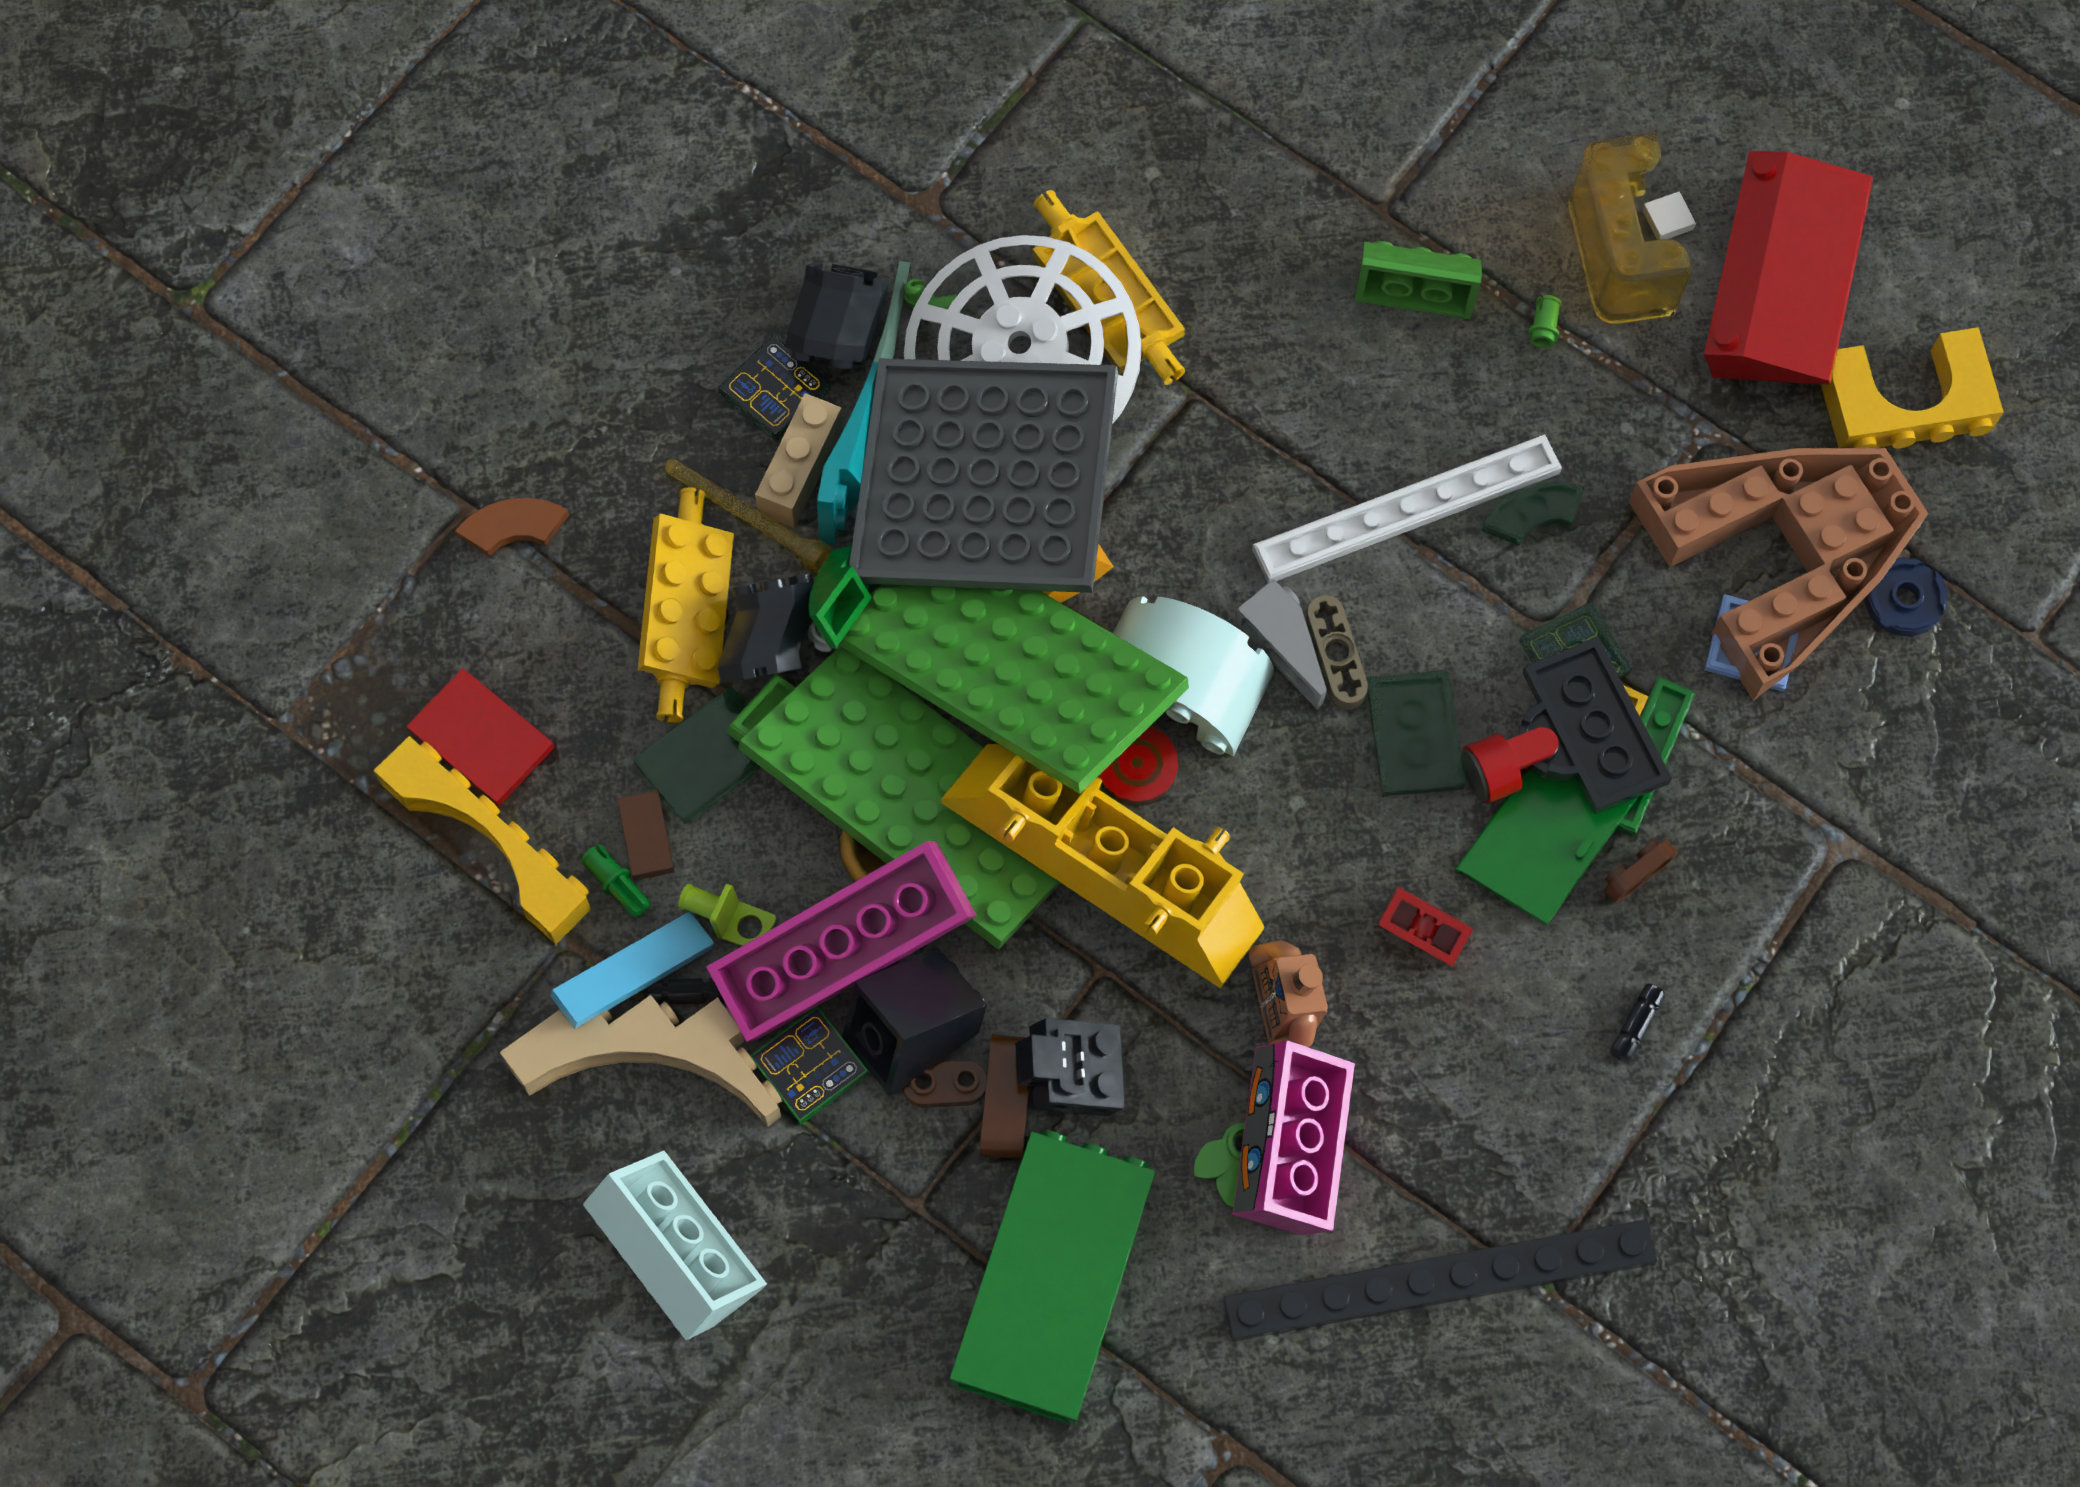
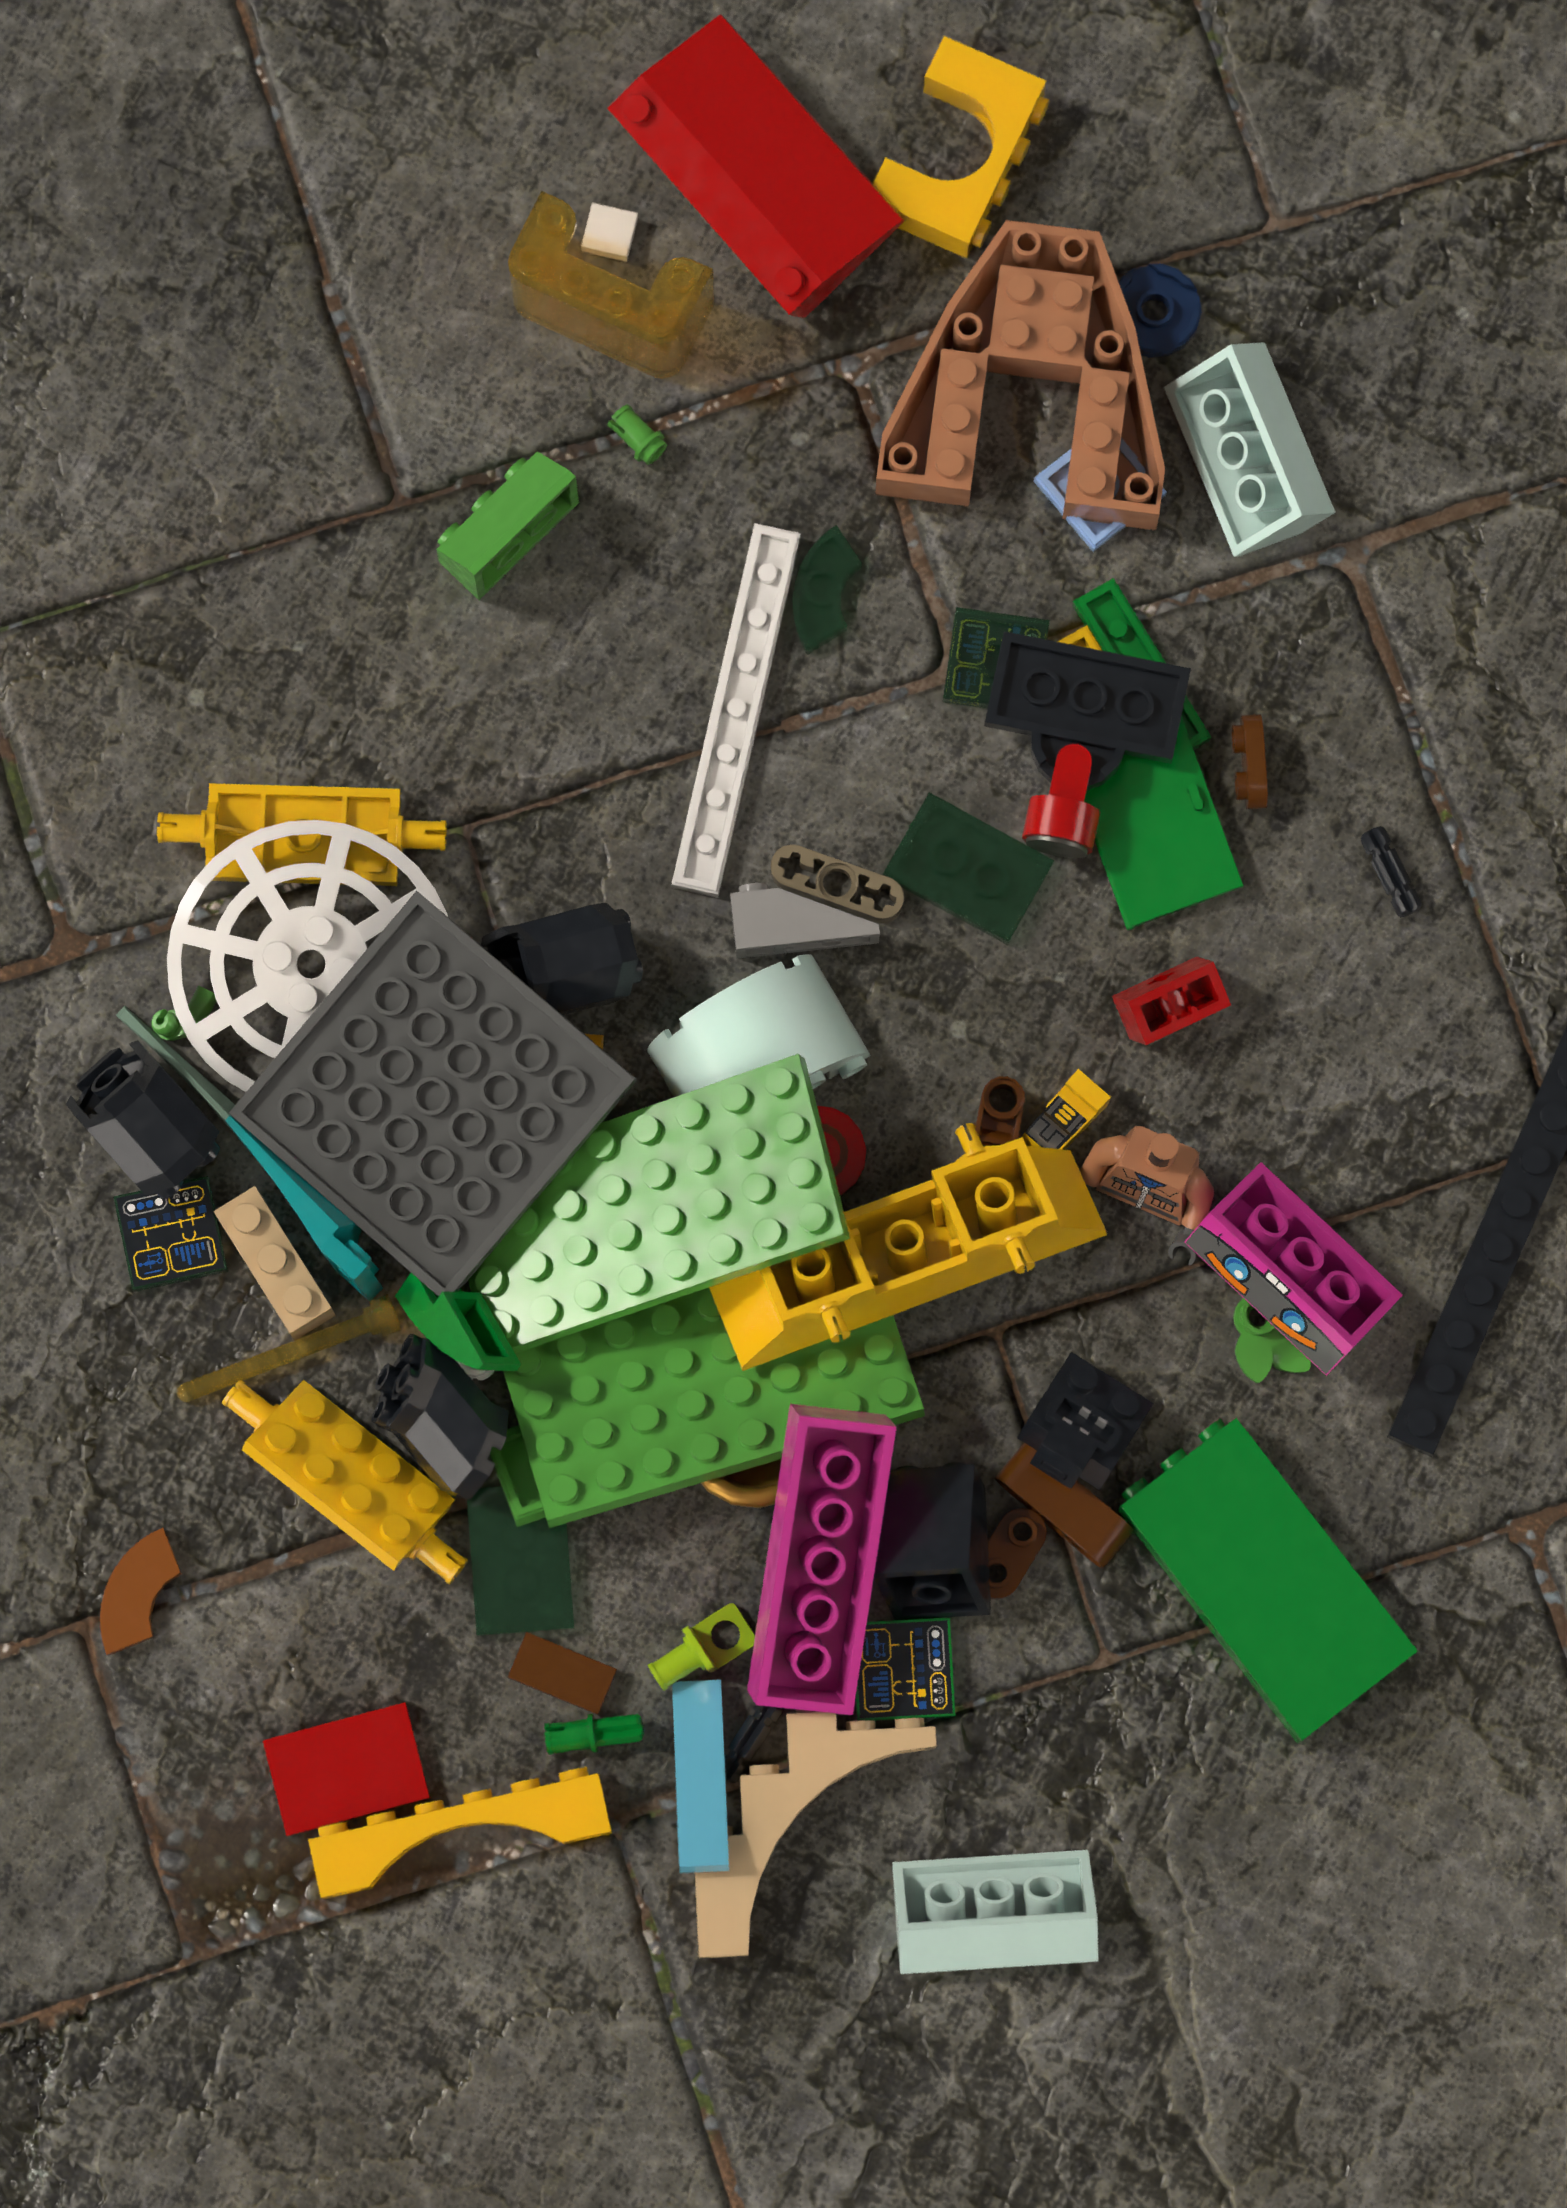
camera: 55 degrees left, 10 degrees up
(1148, 505) = (572, 956): none -> black brick
(1245, 861) = (999, 1127): none -> reddish brown piece
(1290, 912) = (1067, 1113): none -> leg
(1861, 721) = (1249, 448): none -> light aqua slope

